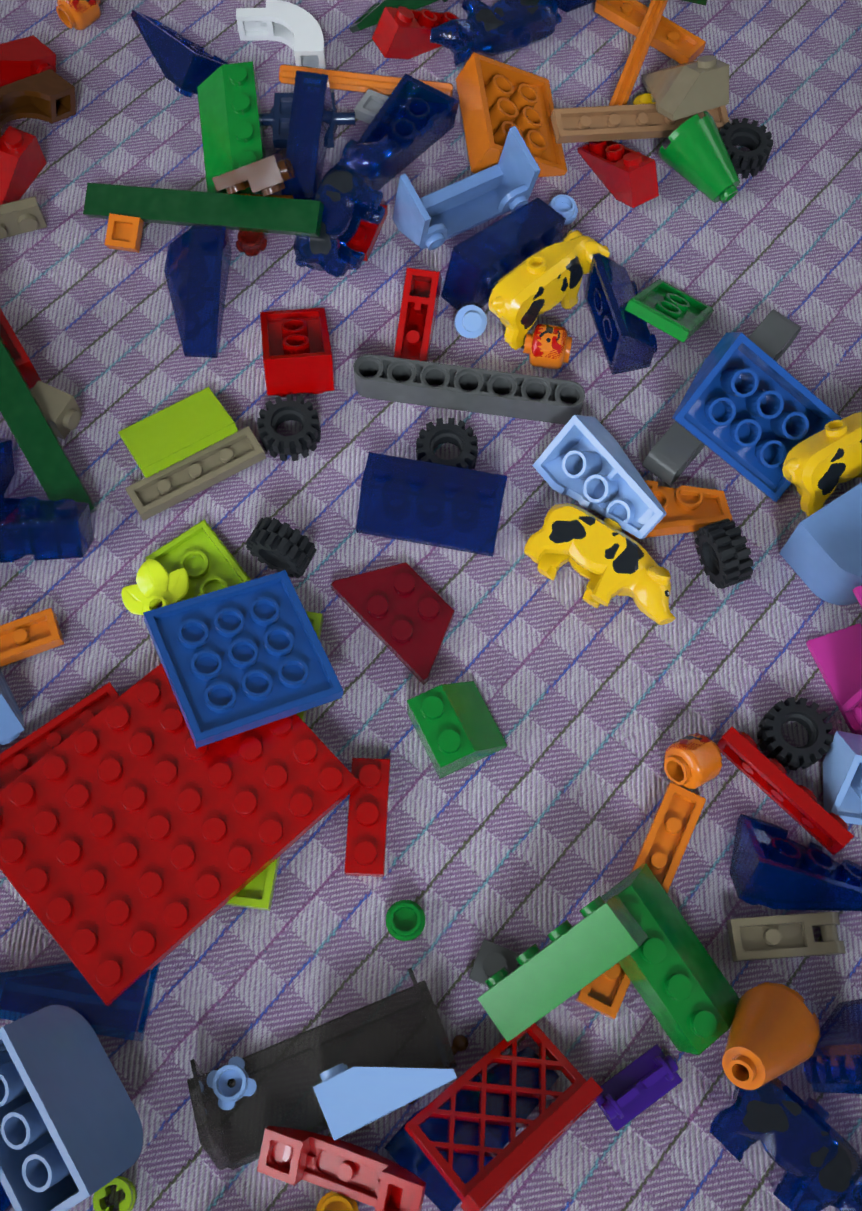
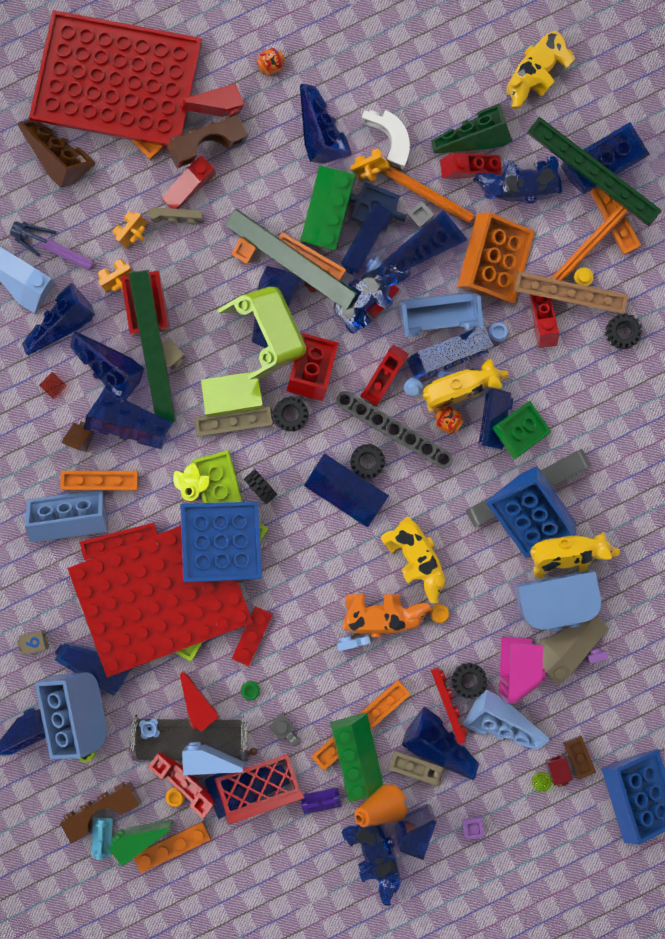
camera: 25 degrees right, 20 degrees up
(234, 316) = (277, 326): none -> lime windscreen
(261, 175) = (327, 258): reddish brown plate -> none
(275, 68) = (370, 166): none -> light orange hips
(318, 994) = (198, 707): none -> red slope
(400, 613) = (308, 541): dark red wing -> none
(454, 726) = (310, 611): green slope -> none
(550, 753) = (348, 642): none -> light blue plate
(562, 967) = (306, 745): brick -> none
(587, 685) = (382, 619): none -> orange animal
(598, 474) = (438, 506): light blue wedge -> none
(683, 642) = (439, 613): none -> light orange plate
(687, 509) = (465, 540): orange wing -> none
(689, 87) = (601, 285): dark tan wedge -> none
(692, 761) = (413, 674): orange head -> none
(702, 158) = (593, 334): green cone -> none
(724, 553) = (479, 580): black tyre -> none

